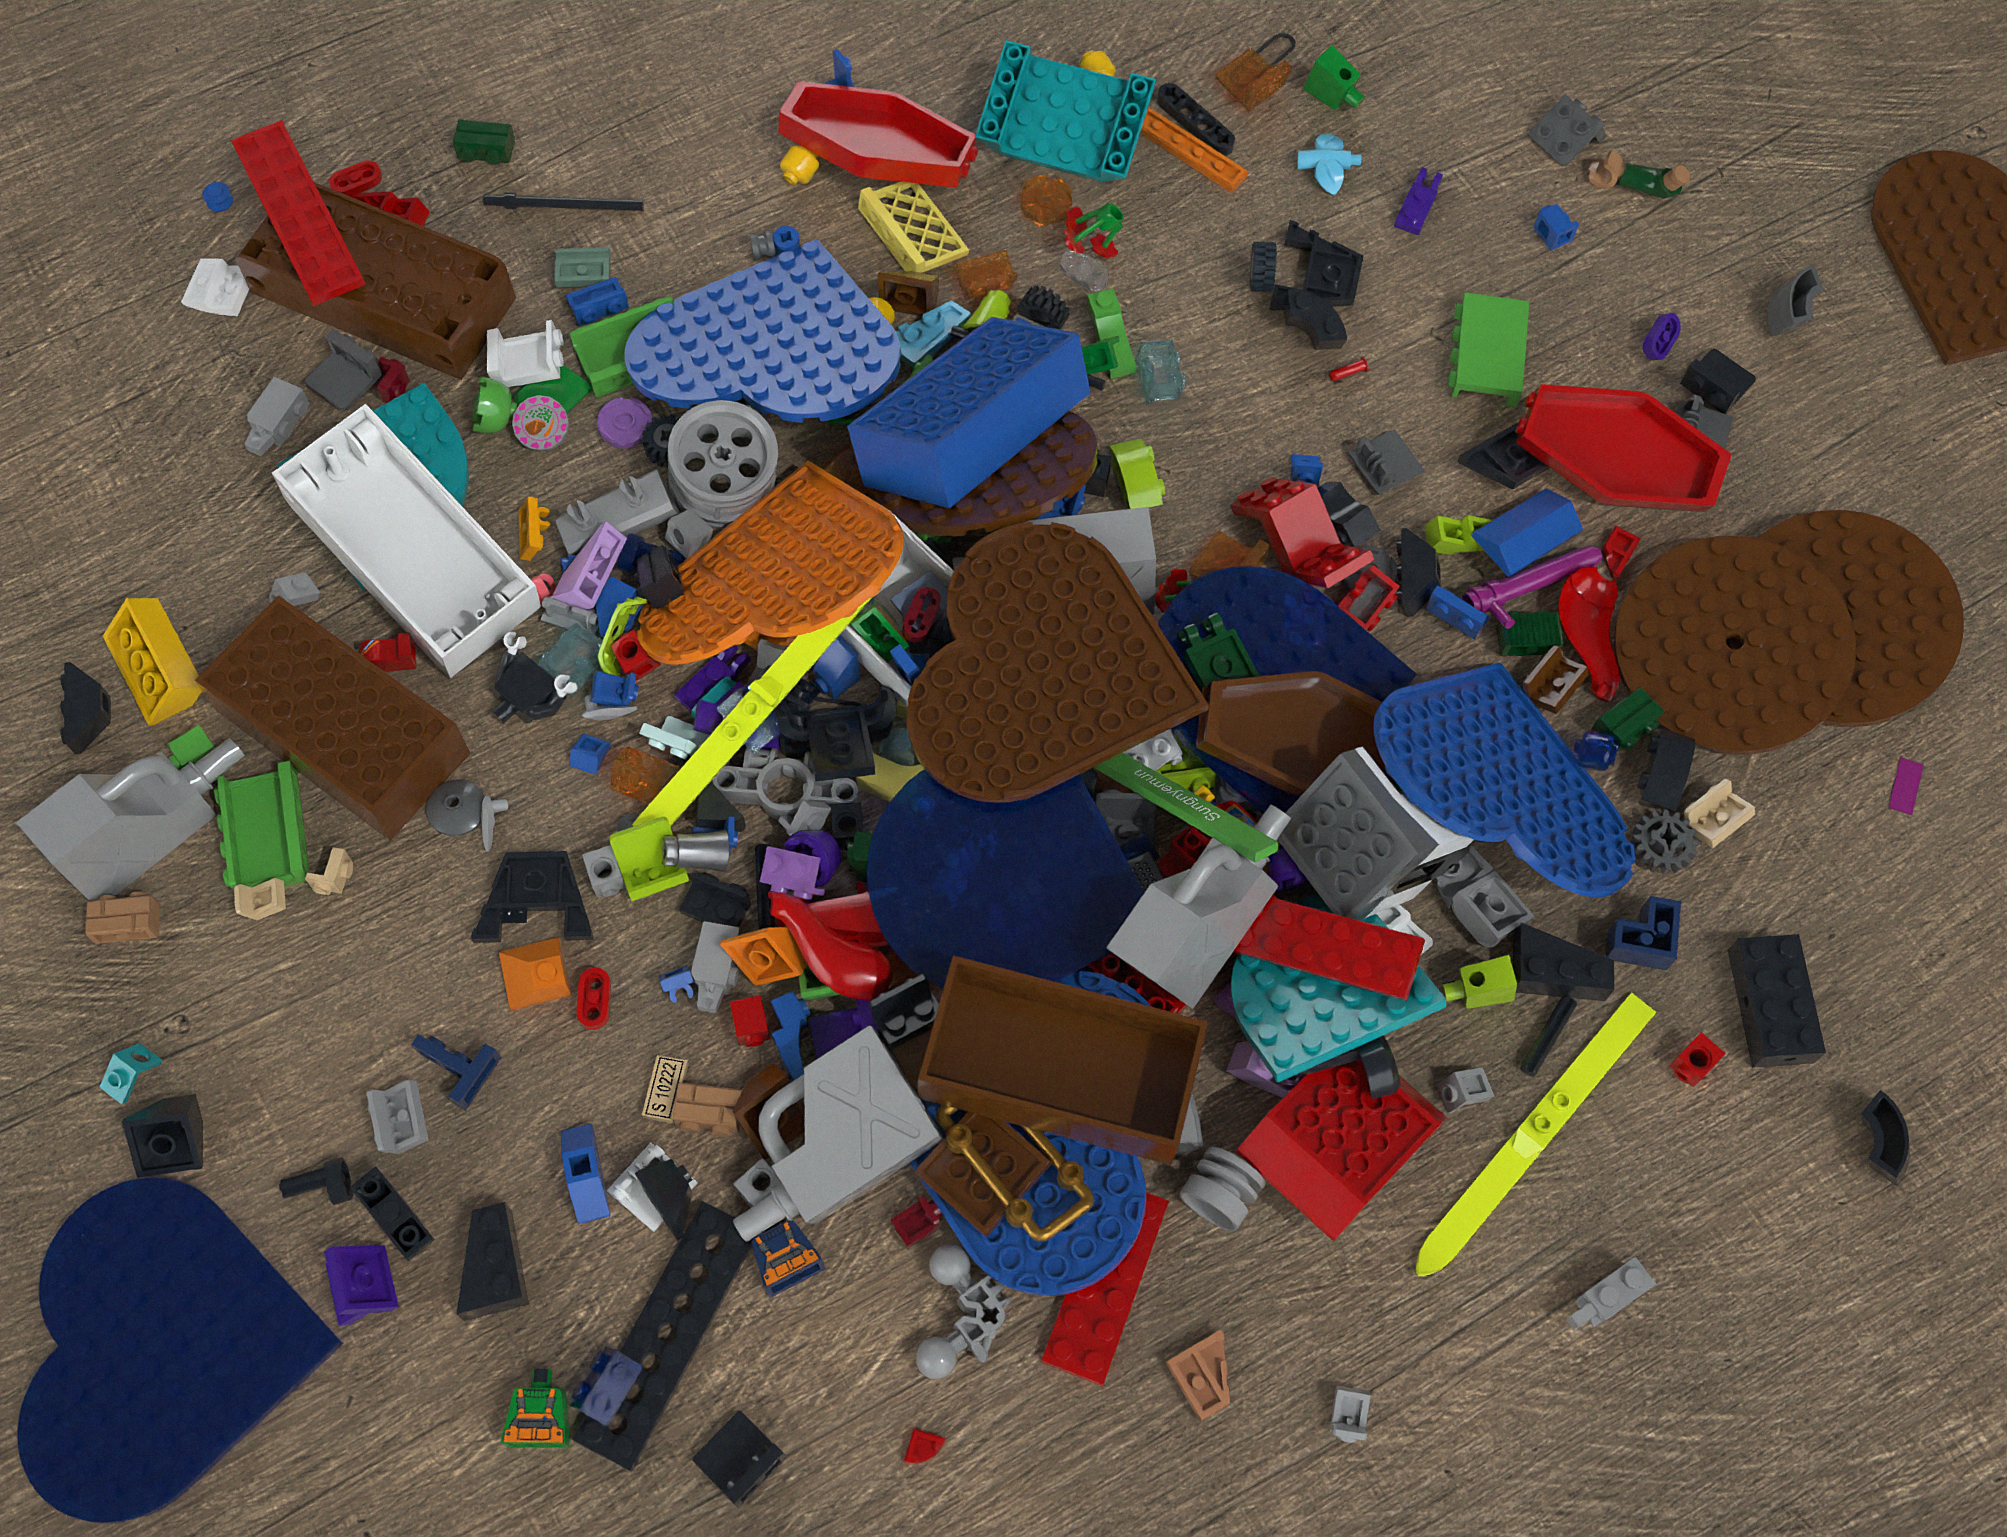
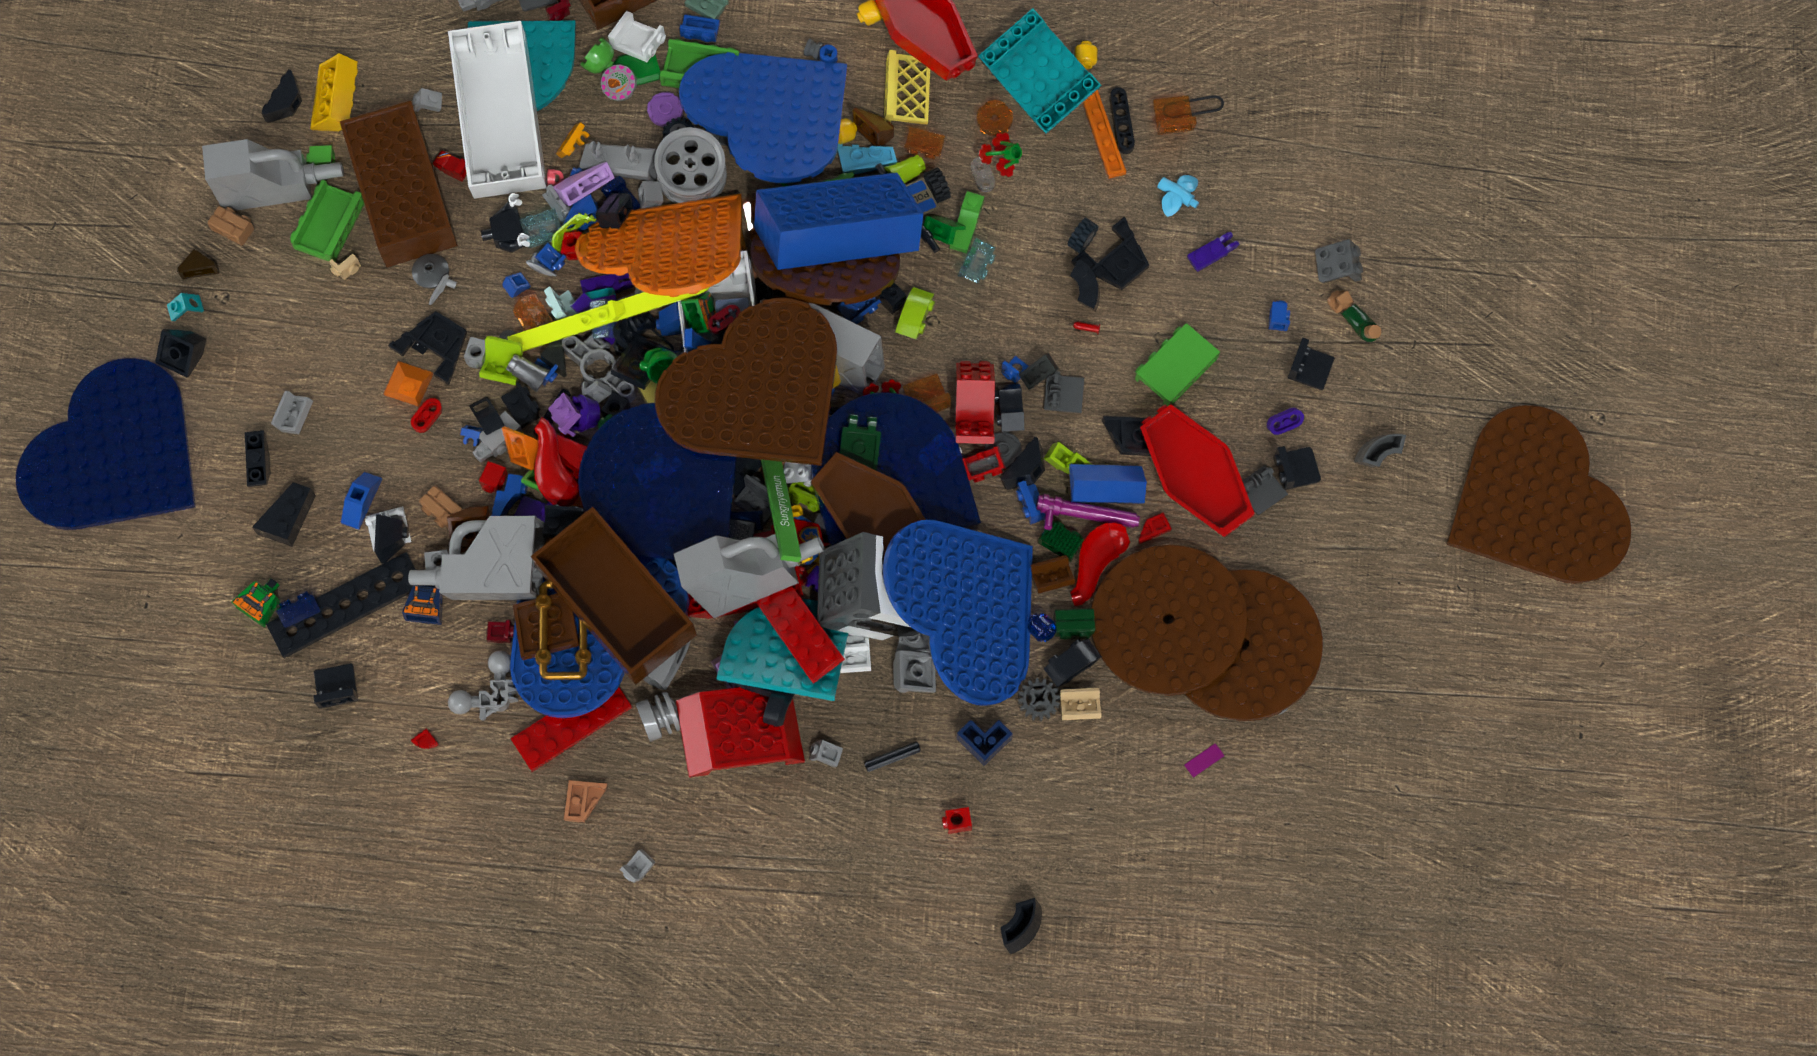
camera: 35 degrees right, 5 degrees up
(110, 1003) = (196, 266): none -> dark brown slope
(260, 900) = (301, 258): tan bracket -> none
(333, 1176) = (242, 422): black piece -> none
(360, 1281) = (220, 482): dark purple bracket -> none
(472, 1074) = (342, 414): dark blue bracket -> none
(663, 1088) = (432, 478): tan tile -> none
(684, 944) = (487, 417): none -> black piece
(877, 726) = (656, 362): none -> green piece
(1334, 80) = (1219, 146): green torso -> none
(1342, 450) = (1038, 371): none -> pearl dark grey tile
(1493, 979) = (876, 707): lime torso -> none
(1533, 1136) = (845, 800): neon yellow piece -> none
(1558, 967) = (923, 725): black wedge -> none
(1612, 1294) = (812, 901): light grey hinge -> none
(1634, 260) = (1310, 366): none -> black bracket
(1776, 1001) = (1025, 819): black brick -> none

